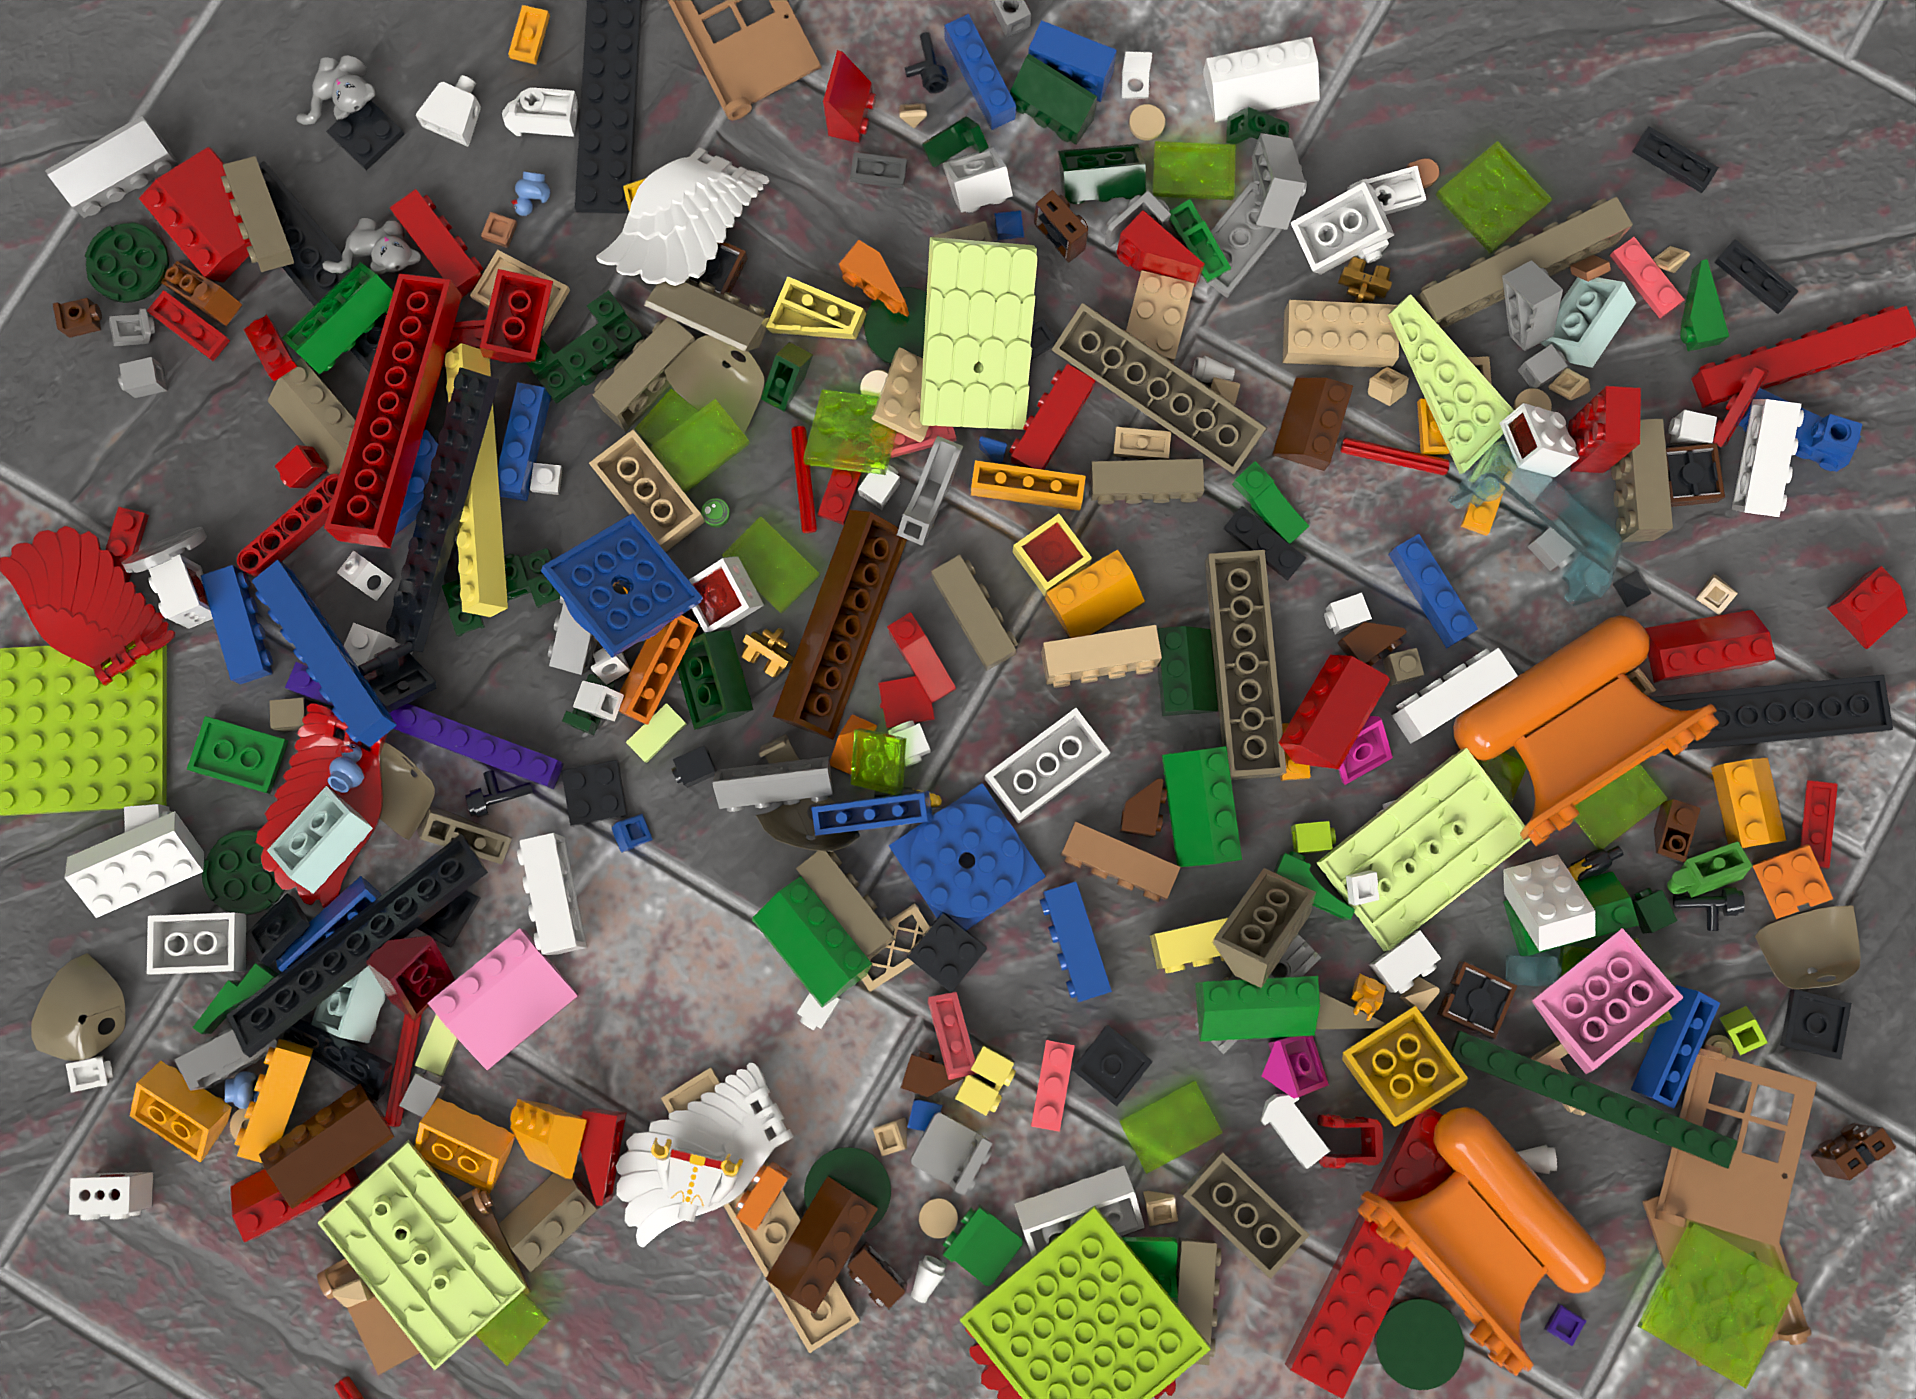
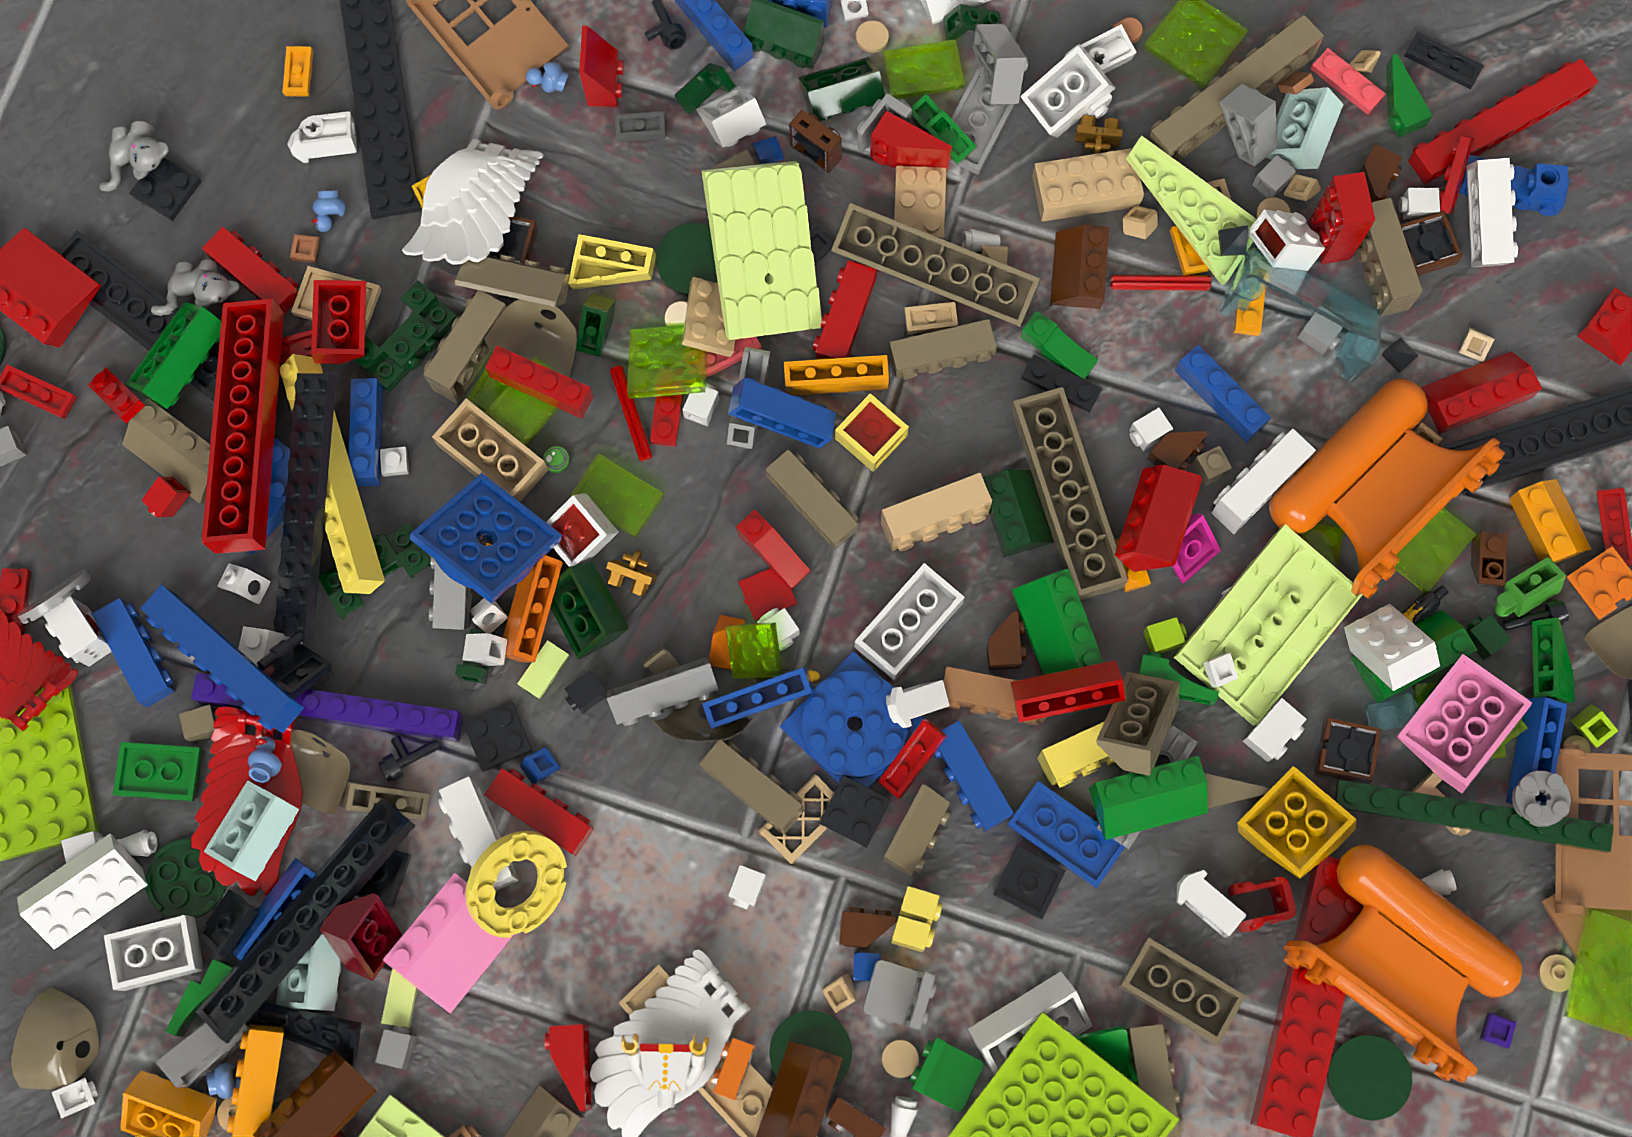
camera: 10 degrees left, 5 degrees down
(201, 293) = (42, 359): dark orange slope -> none
(205, 826) = (140, 843): none -> white cone
(257, 213) = (82, 277): dark tan brick -> none
(282, 529) = (158, 556): red beam -> none
(402, 1070) = (370, 1029): red axle -> none
(451, 110) = (240, 152): white torso -> none
(463, 1144) = (442, 1087): light orange slope -> none
(548, 1135) = (521, 1059): light orange slope -> none
(597, 982) = (534, 910): none -> light yellow plate
(620, 882) = (538, 811): none -> red brick
(712, 428) = (539, 382): none -> red brick
(795, 100) = (552, 79): none -> medium blue animal
(812, 942) = (728, 827): green slope -> none
(841, 624) = (692, 536): reddish brown slope -> none
(868, 271) = (651, 216): orange slope -> none
(913, 113) = (660, 71): tan slope -> none
(952, 1035) = (876, 885): coral plate -> none
(961, 514) = (782, 412): none -> blue brick
(993, 449) = (797, 349): blue slope -> none
(1008, 988) = (917, 831): none -> dark tan slope
(1019, 910) = (912, 758): none -> red plate
(1034, 853) = (915, 701): none -> white piece
(1052, 1085) = (978, 913): coral plate -> none
(1095, 596) = (919, 461): light orange slope -> none
(1160, 1023) = (1065, 834): none -> blue plate
(1160, 1208) = (1103, 1004): tan slope -> none
(1170, 1127) = (1095, 928): clear neon green plate -> none
(1196, 877) = (1068, 691): none -> red brick
(1295, 1066) = (1196, 845): dark pink slope -> none
(1368, 994) = (1248, 766): light orange plate -> none
(1420, 994) = (1295, 756): tan slope -> none
(1483, 429) = (1233, 241): none -> black slope
(1640, 1278) = (1556, 973): none -> tan piece
(1657, 383) = (1379, 169): none -> reddish brown slope
(1683, 1088) = (1553, 787): none -> light grey plate
(1714, 954) = (1551, 662): none -> green slope

